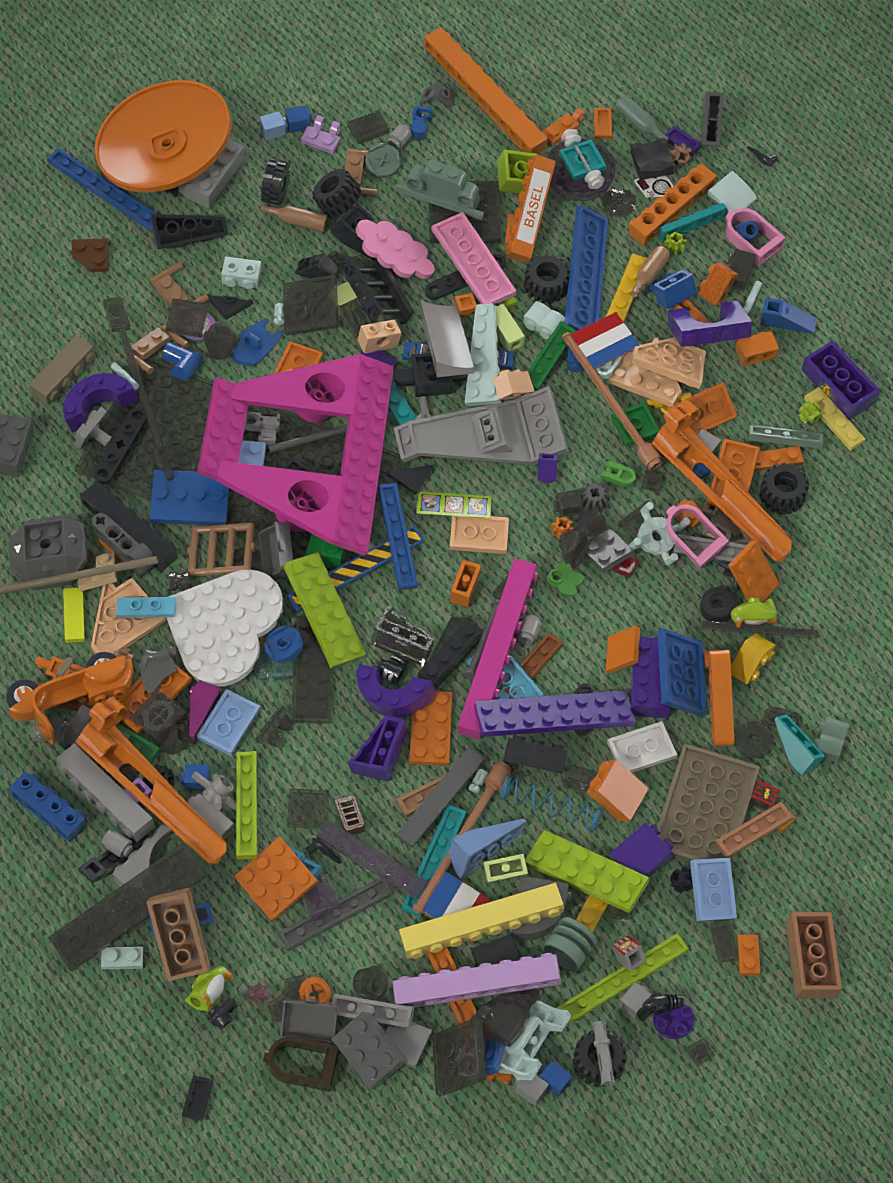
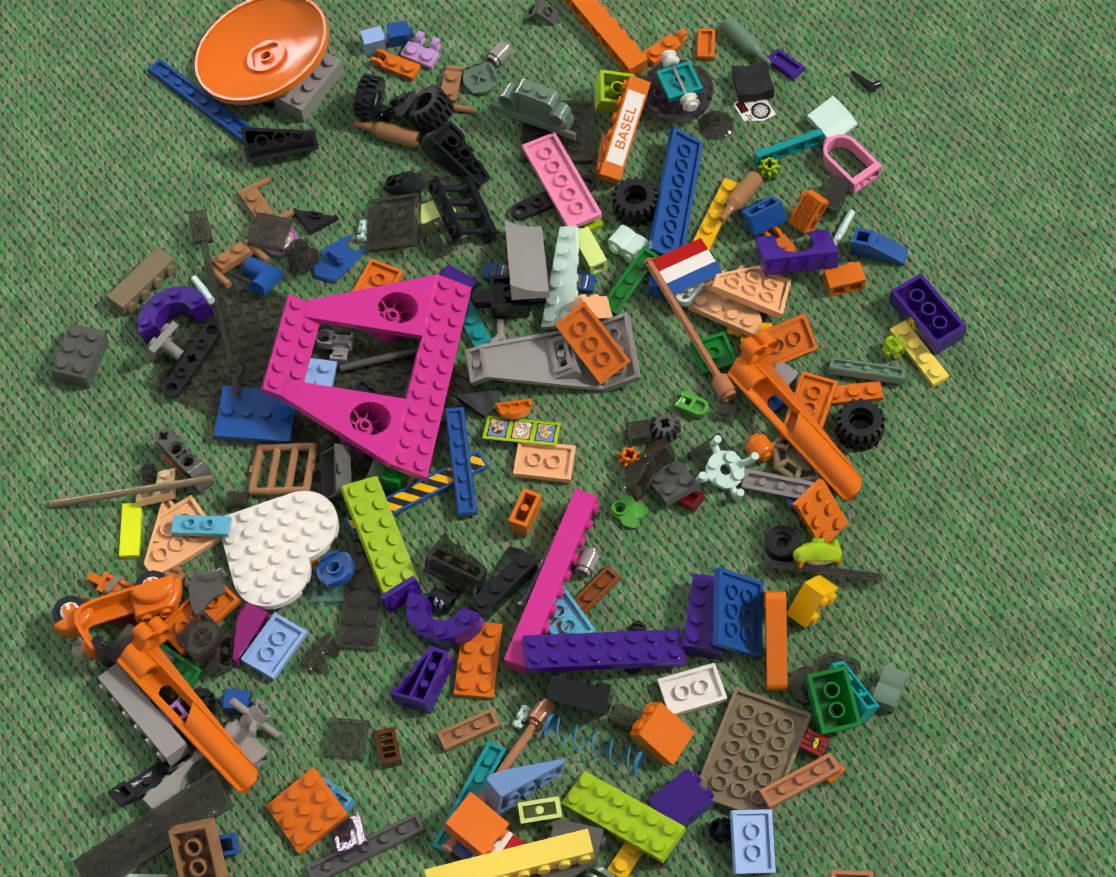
camera: 10 degrees right, 0 degrees up
(48, 806) = (86, 726): blue brick -> none
(65, 555) = (126, 468): dark grey piece -> none
(91, 253) = (183, 164): reddish brown plate -> none
(100, 500) = (168, 416): black brick -> none
(117, 843) = (150, 767): light grey brick -> none
(241, 272) = (328, 188): light aqua brick -> none
(246, 805) = (284, 733): lime plate -> none
(296, 149) = (396, 65): none -> orange hinge
(304, 190) = (398, 106): none -> black plate
(317, 844) = (353, 776): black bar -> none
(348, 667) = (398, 595): none -> dark purple plate
(368, 127) = (469, 43): clear smoke plate -> none
(372, 860) = (402, 793): clear purple tile -> none
(379, 336) = (460, 256): light nougat brick -> none
(395, 249) = (483, 168): bright pink plate -> none
(418, 125) = (519, 44): blue leg -> none
(440, 797) = (480, 733): dark grey tile -> none
(444, 484) = (514, 409): none -> orange plate
(445, 885) = (476, 826): none -> orange brick
(465, 304) = (550, 225): orange tile -> none
(519, 416) = (592, 342): none -> orange plate
(547, 467) = (618, 395): dark purple brick -> none
(623, 649) = (680, 586): orange tile -> none
(672, 204) = (769, 128): orange brick -> none
(685, 154) = (784, 83): medium nougat gear -> none
(711, 119) = (815, 43): dark grey brick -> none
(711, 551) = (780, 486): bright pink window -> none
(747, 229) = (848, 156): blue brick -> none
(779, 752) = (832, 701): none -> green slope

